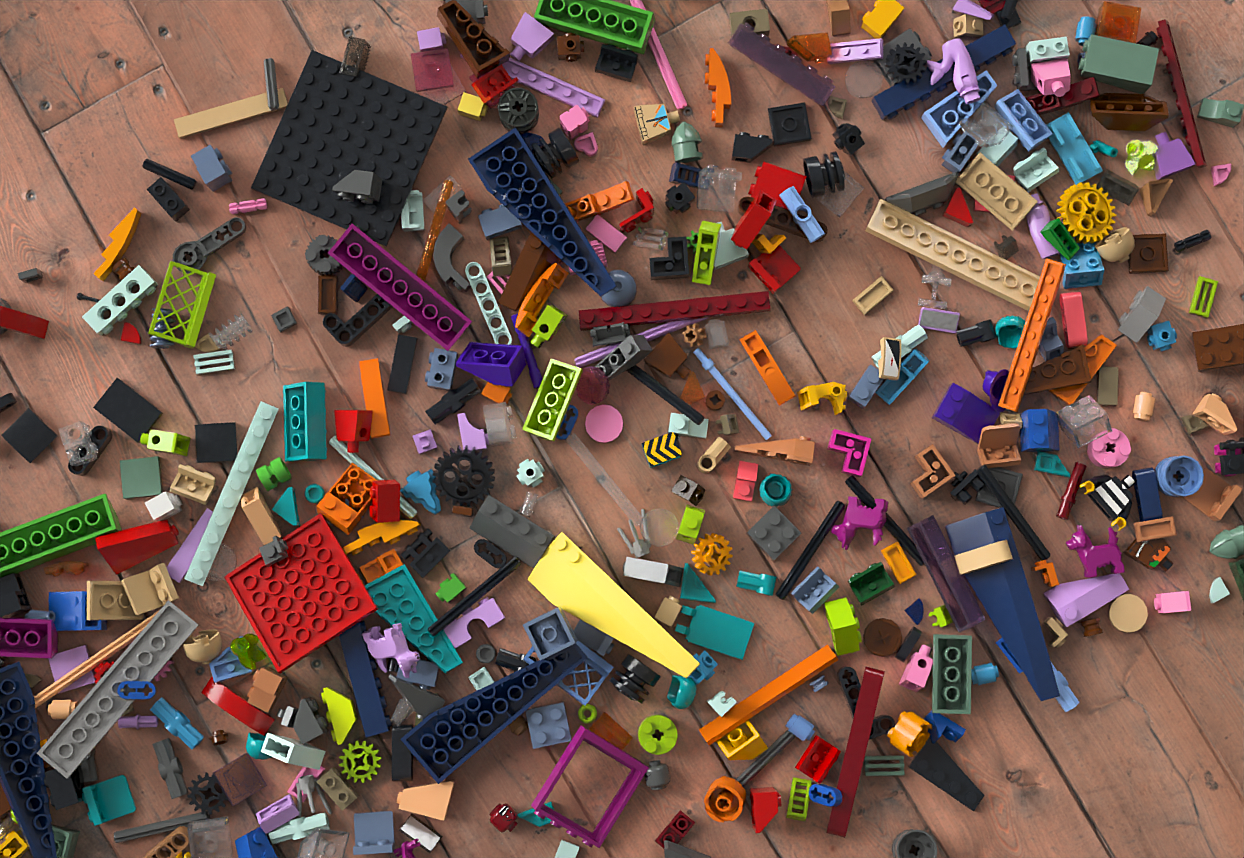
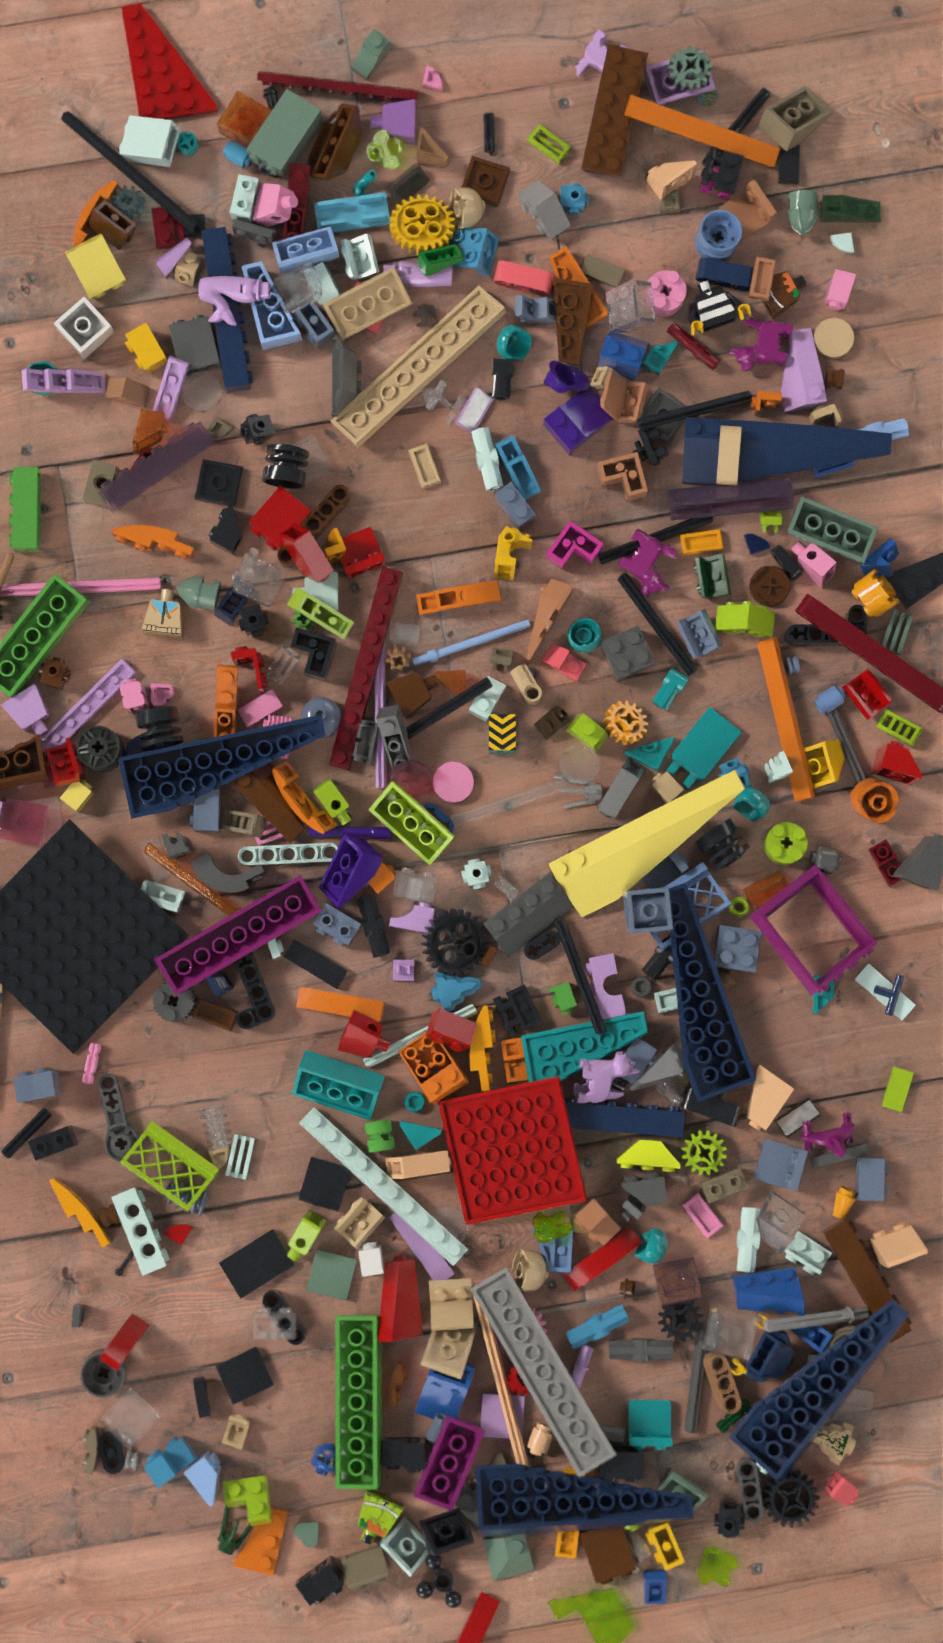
camera: 70 degrees left, 0 degrees up
(136, 685) = (546, 1350): blue beam -> none
(274, 551) = (459, 1162): dark grey bracket -> none
(277, 814) = (726, 1255): lavender slope -> none
(284, 319) = (223, 1068): dark grey tile -> none
(293, 751) = (670, 1215): light aqua brick -> none
(307, 784) = (708, 1214): light grey plant -> none
(359, 185) = (118, 937): dark grey slope -> none
(503, 818) = (812, 1028): dark red head -> none
(616, 62) = (89, 632): black bracket -> none
(713, 403) = (470, 665): reddish brown wheel -> none
(809, 224) = (304, 506): light blue piece -> none
(824, 799) = (902, 697): blue beam -> none
(890, 359) = (498, 471): slope -> none
(902, 56) = (196, 342): black gear -> none
(958, 210) = (370, 348): red slope -> none
(984, 674) = (843, 499): dark azure brick -> none
(1032, 335) = (526, 323): orange tile -> none
(1143, 406) = (636, 243): light nougat brick -> none

